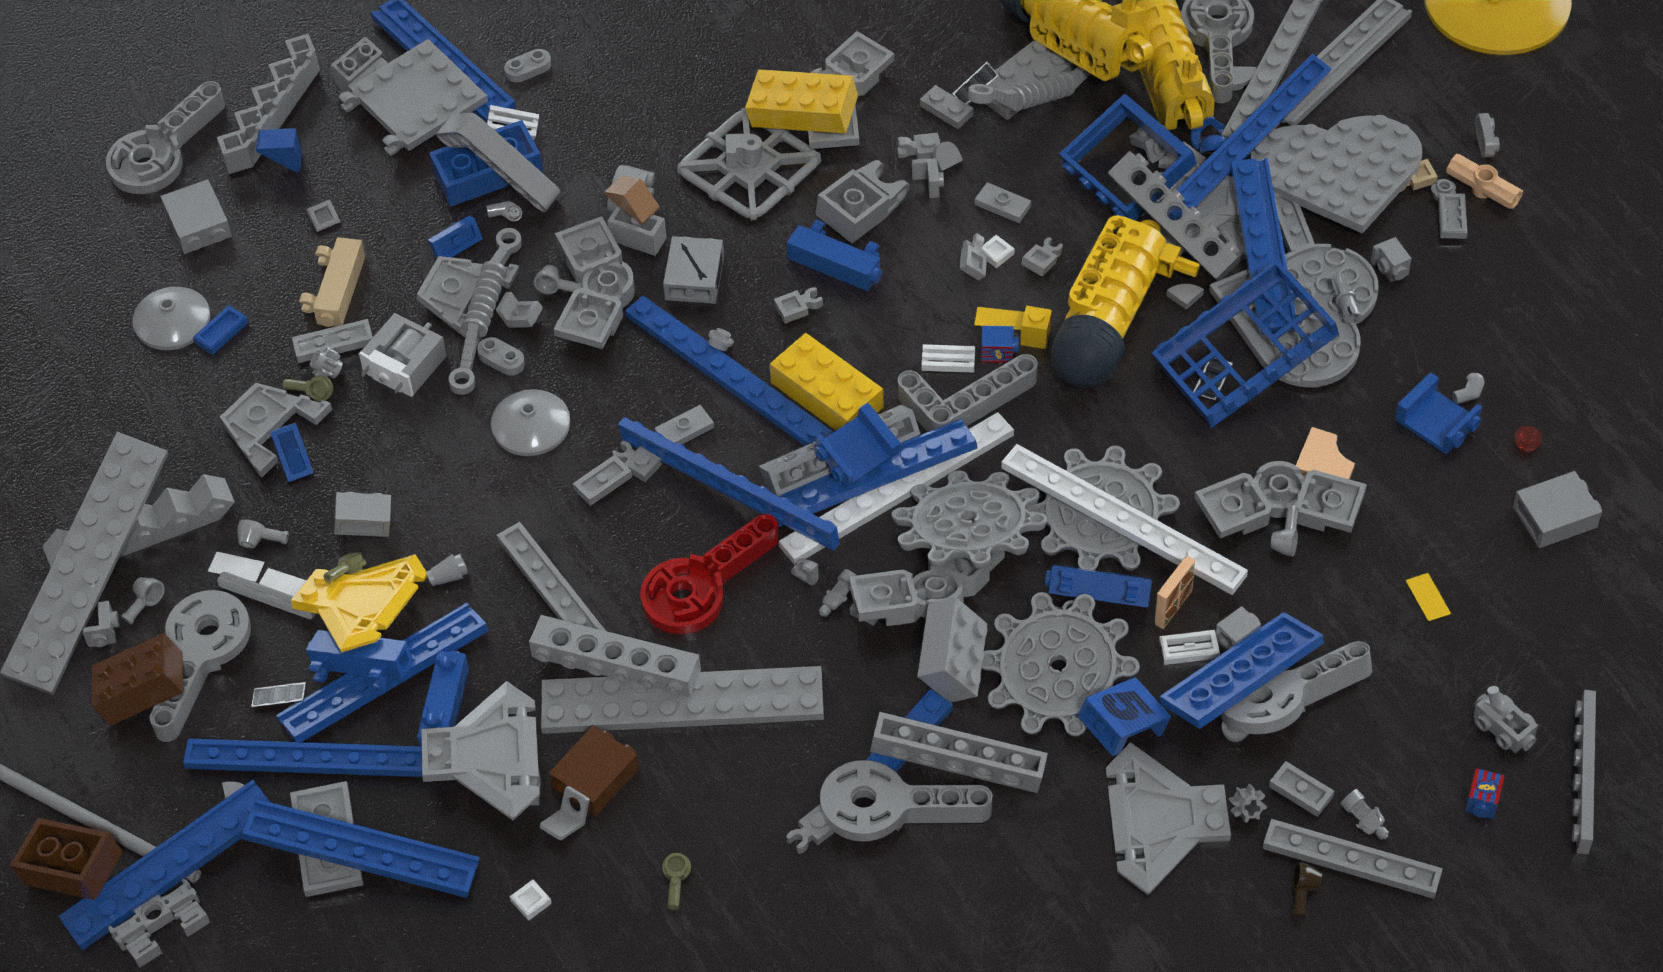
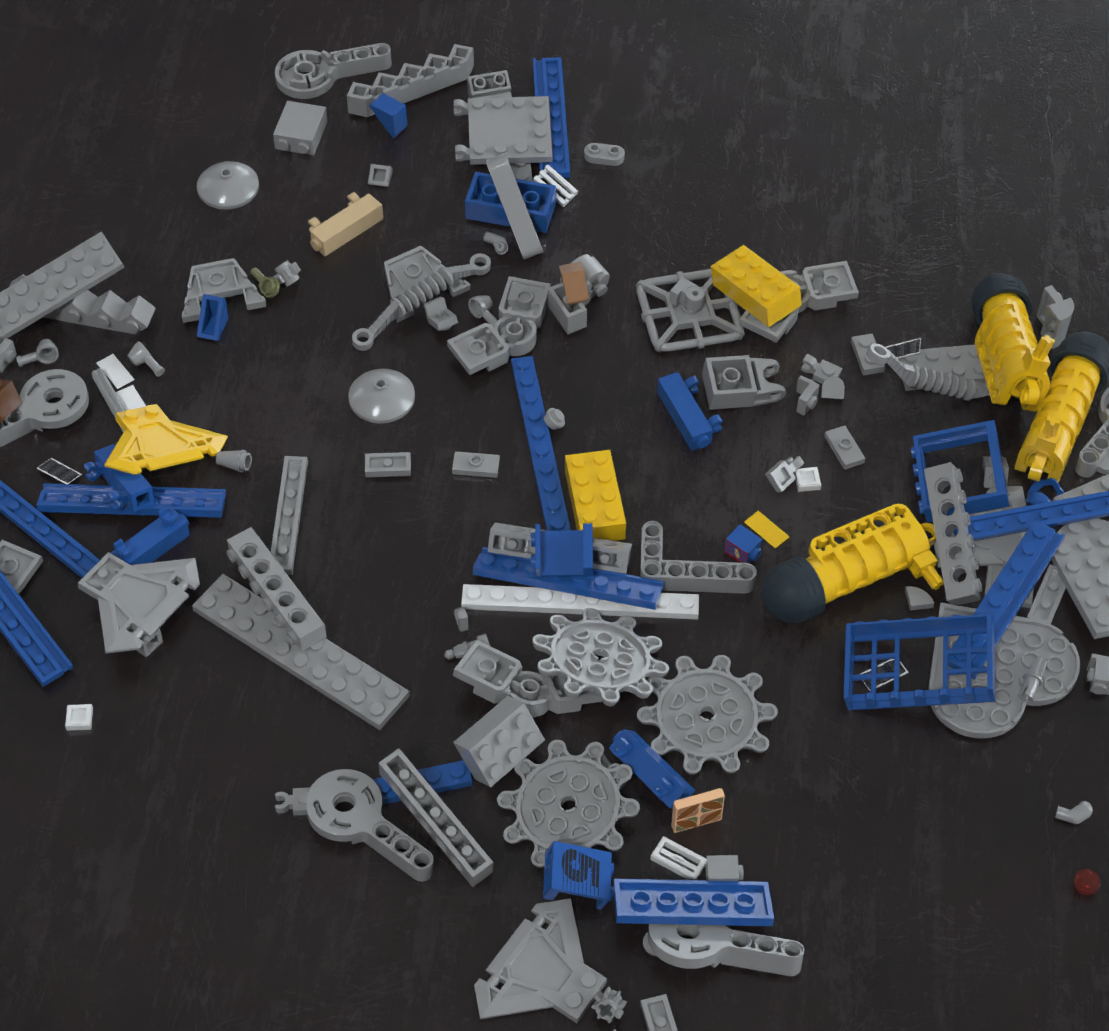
camera: 35 degrees right, 0 degrees up
(220, 330) = (249, 211): blue tile -> none
(338, 338) = (308, 261): light grey plate -> none
(349, 563) = (179, 414): olive plate -> none
(362, 514) = (215, 386): light grey brick -> none
(402, 355) = (339, 297): light grey piece -> none
(455, 238) = (445, 241): blue tile -> none
(499, 356) = (401, 335): light grey plate -> none
(567, 819) = (148, 679): light grey bracket -> none
(595, 768) = (197, 658): reddish brown brick -> none
(640, 462) = (424, 467): light grey plate -> none
(675, 868) = (185, 763): olive plate -> none
(693, 269) = (581, 359): light grey brick -> none
(705, 578) = (394, 578): red beam -> none
(730, 484) = (464, 526): blue plate -> none
(794, 306) = (627, 427): light grey plate -> none
(948, 355) = (704, 531): white tile -> none
(1036, 327) = (781, 548): yellow brick -> none
(1043, 258) = (833, 505): light grey plate -> none
(1123, 518) = (712, 734): white plate -> none
(1250, 502) = (869, 814): light grey plate -> none
(1286, 540) = (824, 831): light grey bar -> none
(1322, 454) = (908, 790): light nougat tile -> none
(1428, 597) = (895, 949): yellow sticker -> none
(1436, 416) = (1028, 815): blue panel -> none
(1557, 509) = (1058, 953): light grey brick -> none

